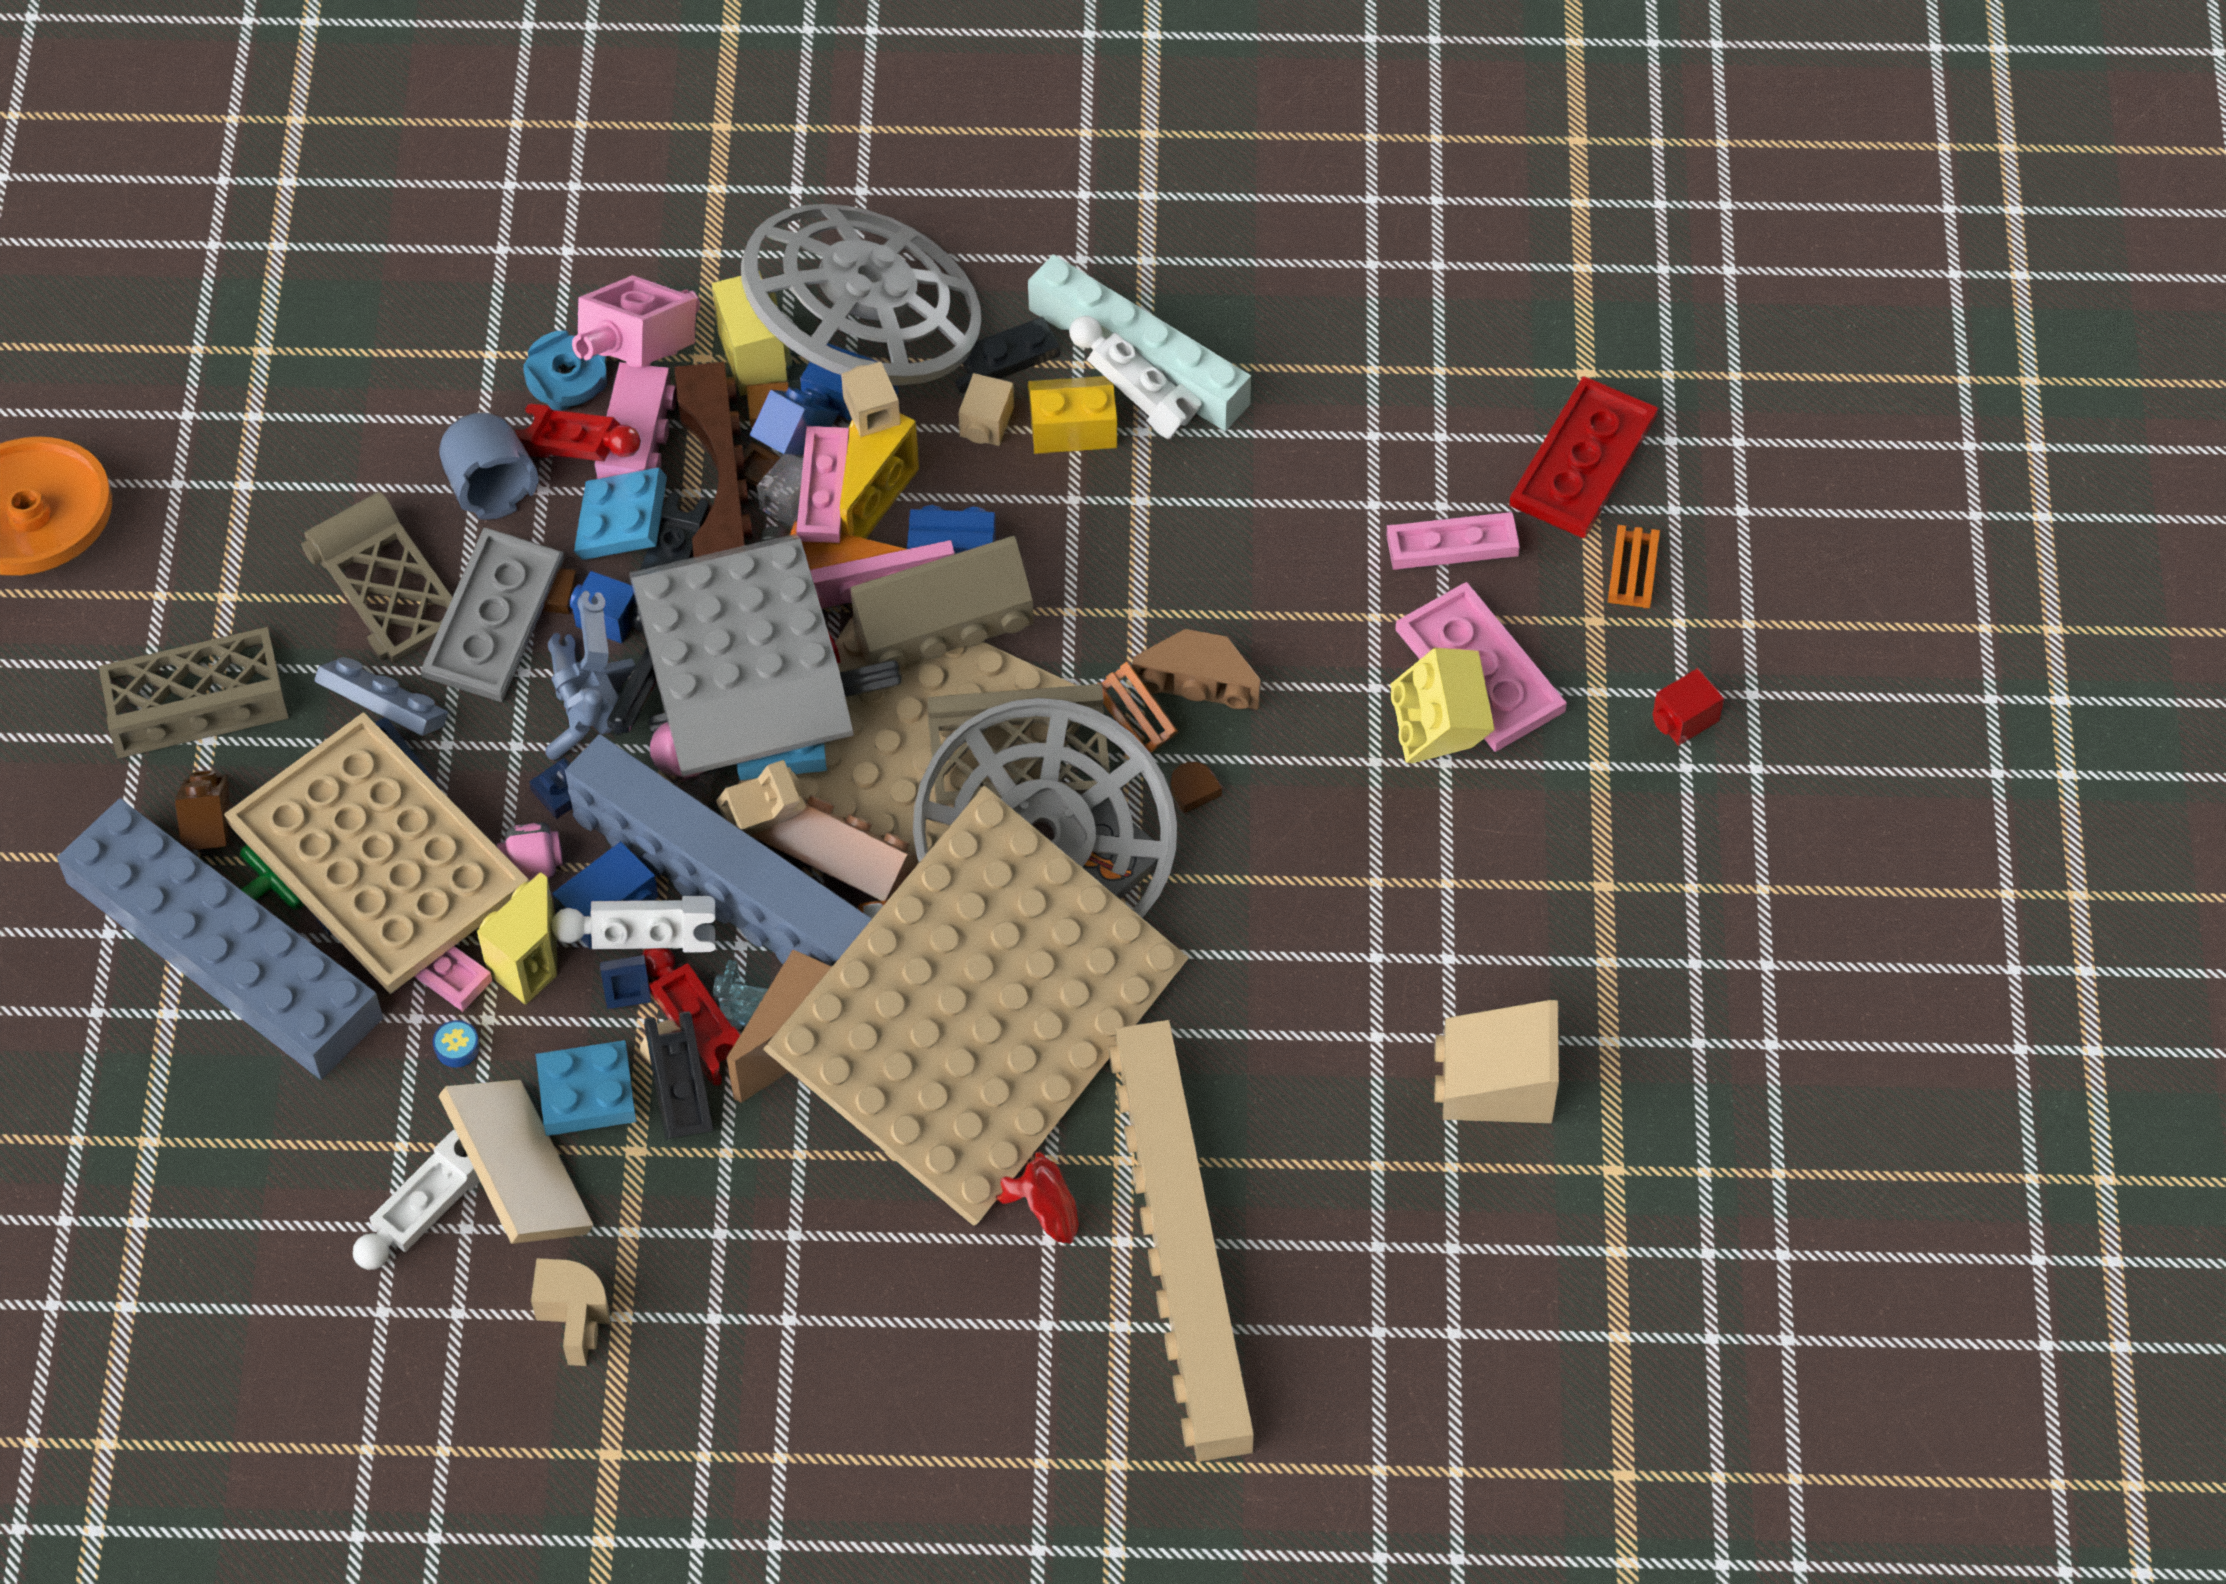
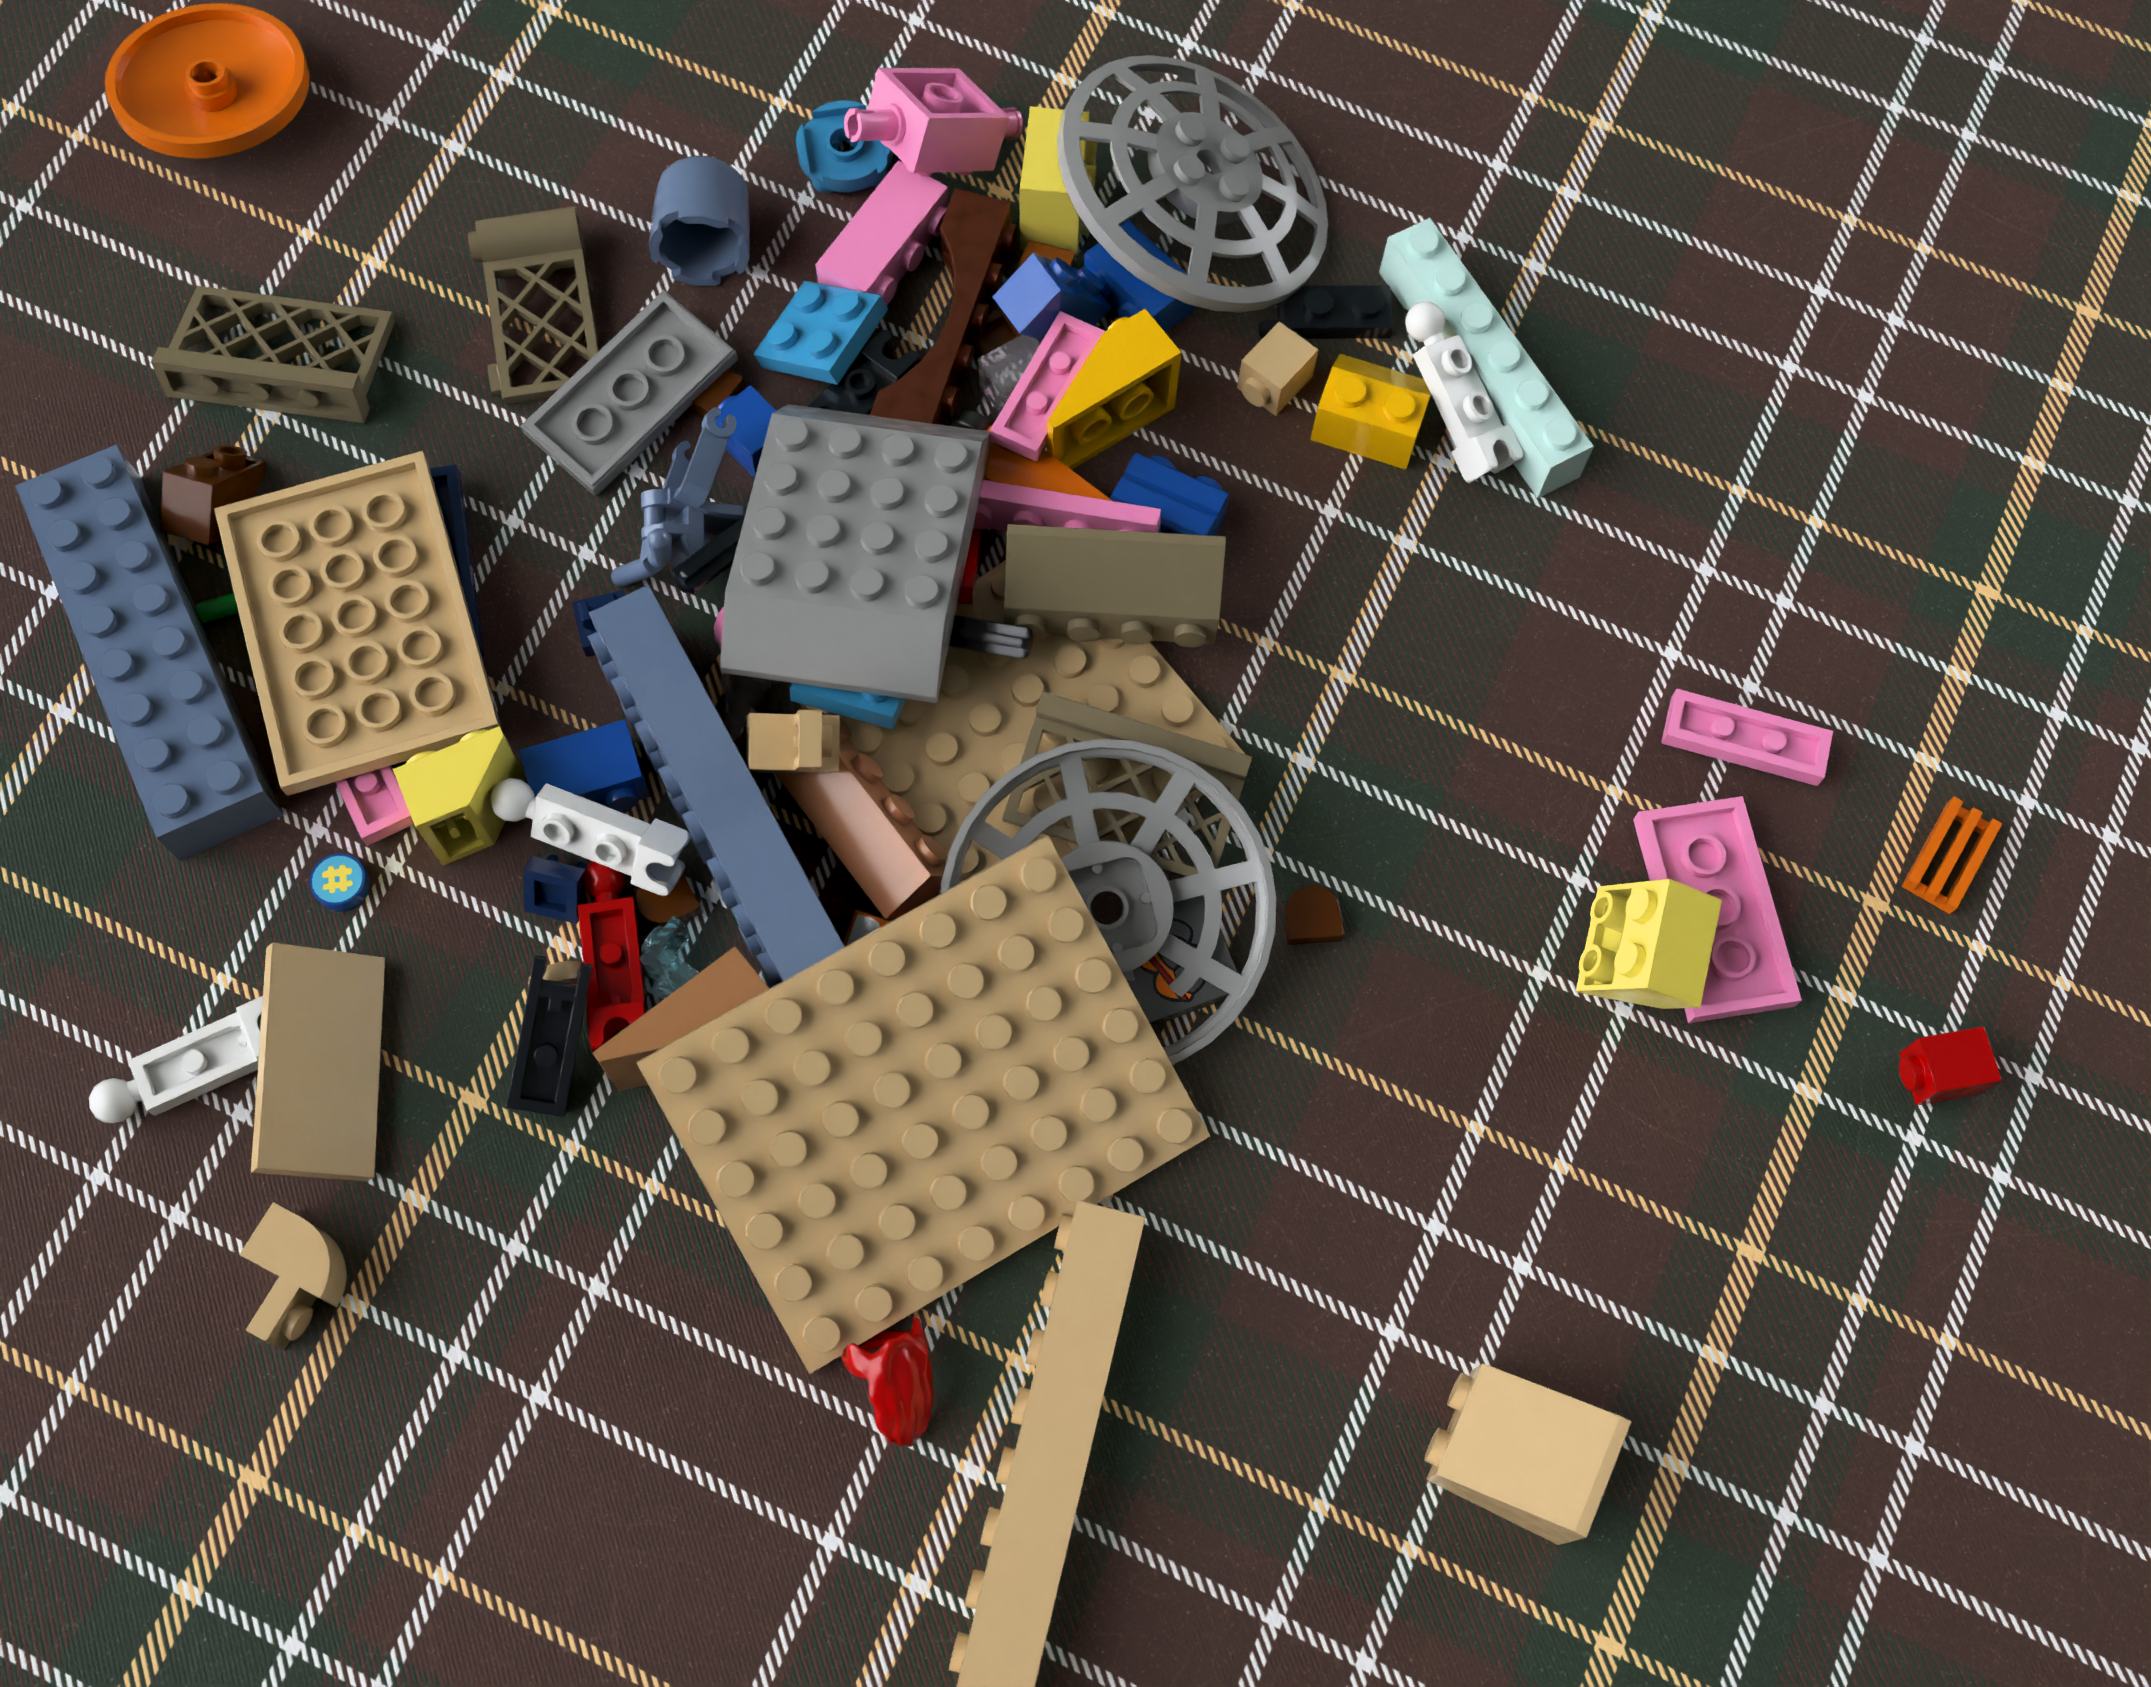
camera: 20 degrees right, 10 degrees up
(381, 695) = (464, 439): sand blue plate -> none
(533, 849) = (530, 687): bright pink head -> none
(576, 435) = (809, 224): red plate -> none
(585, 1088) = (449, 1001): dark azure plate -> none
(709, 964) = (660, 909): none -> reddish brown tile
(870, 398) = (1138, 306): tan brick -> none
(1114, 680) = (1264, 802): orange tile -> none
(1199, 669) = (1380, 777): medium nougat slope -> none
(1583, 457) = (1945, 695): red plate -> none

